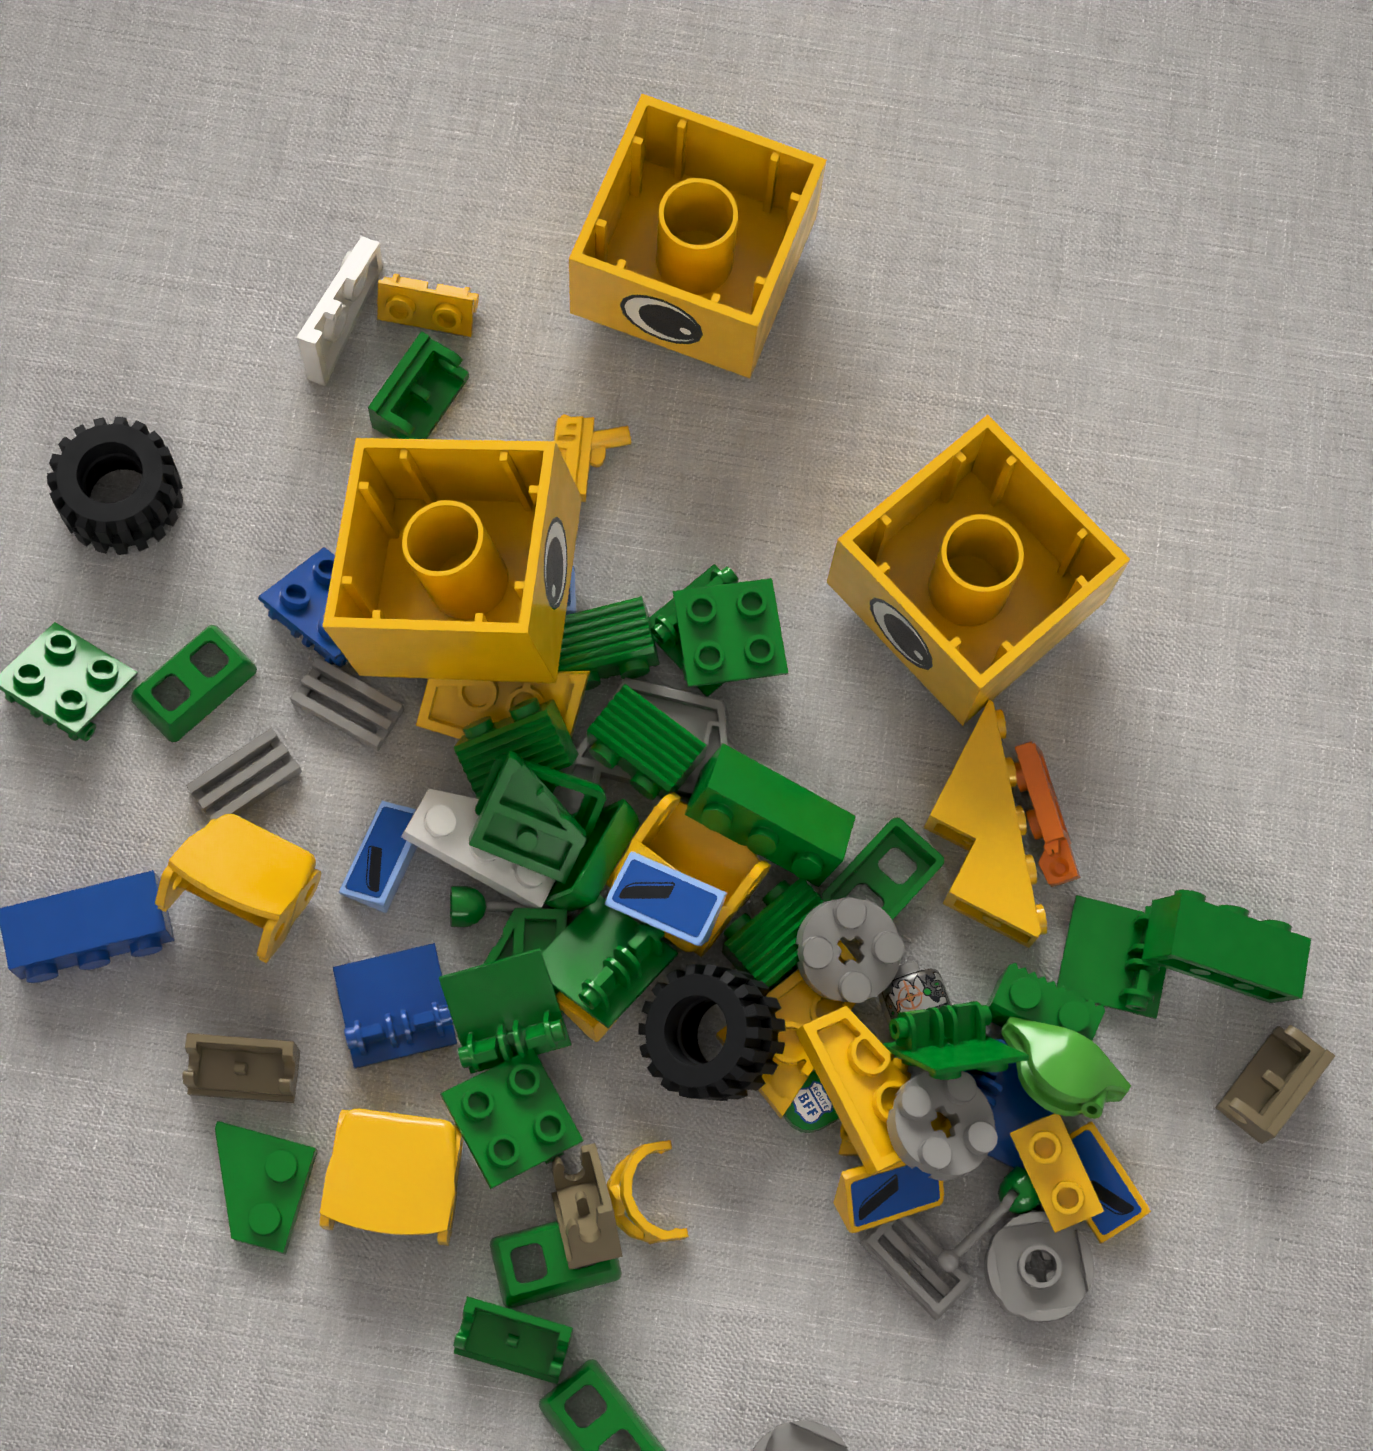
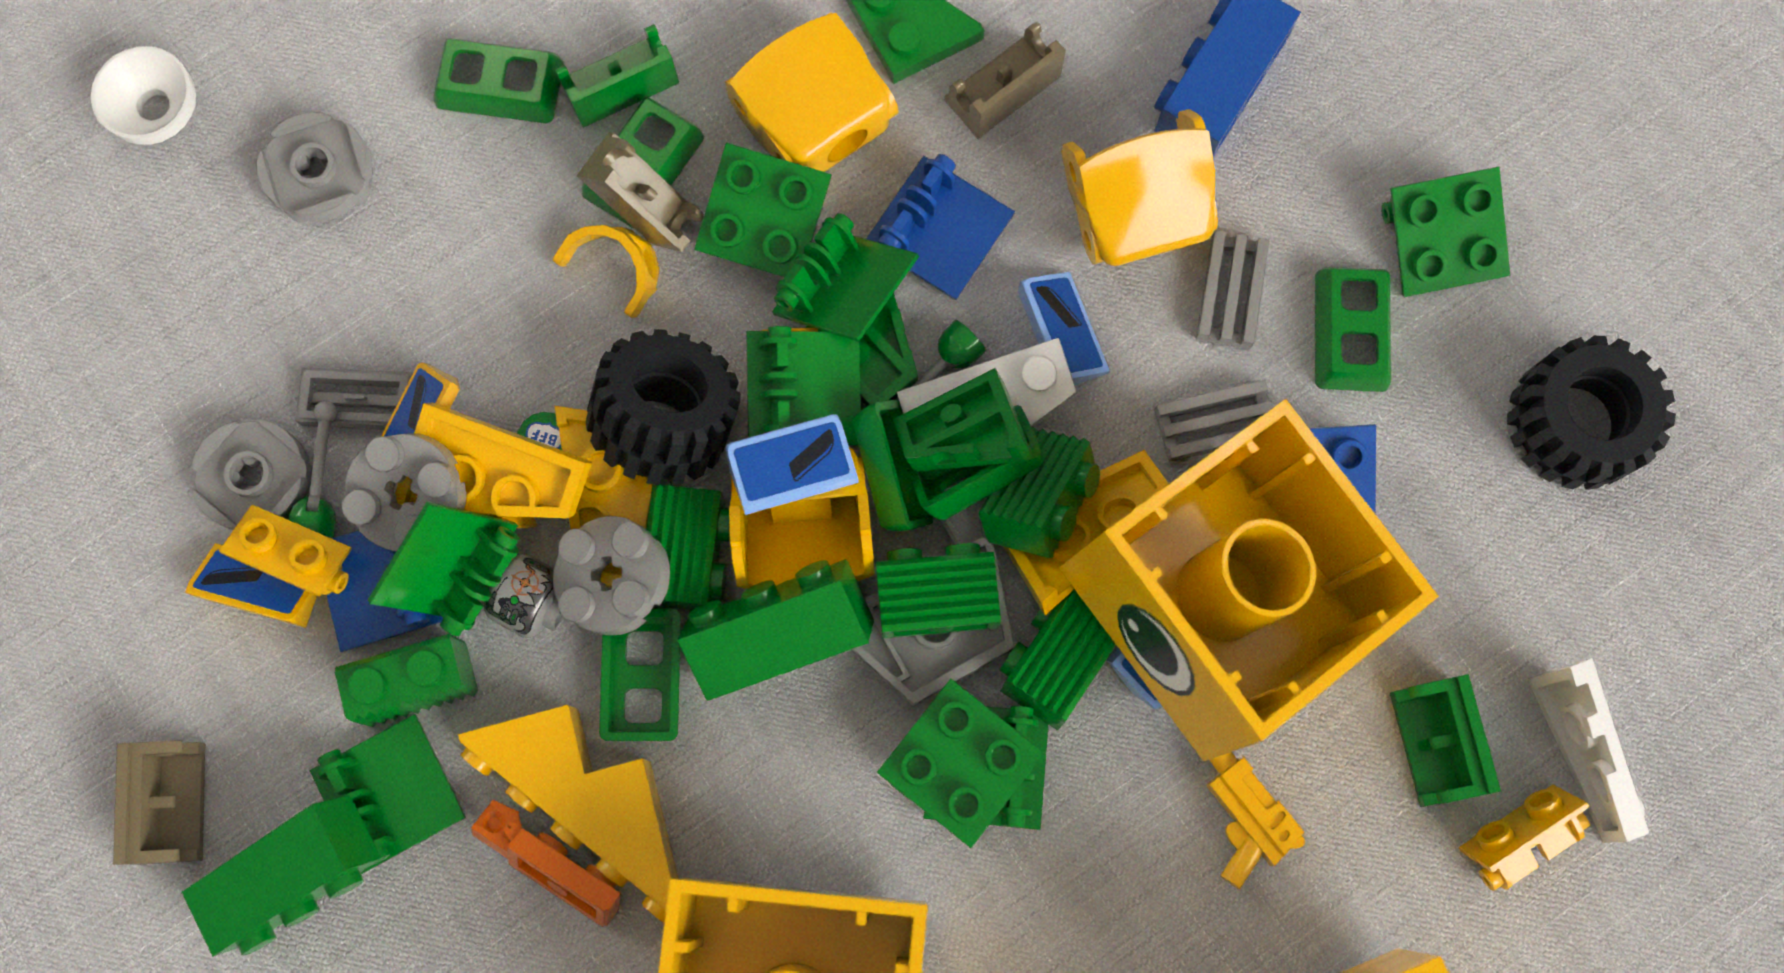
camera: 145 degrees right, 5 degrees up
(1064, 1069) = (342, 632): bright green hat -> none

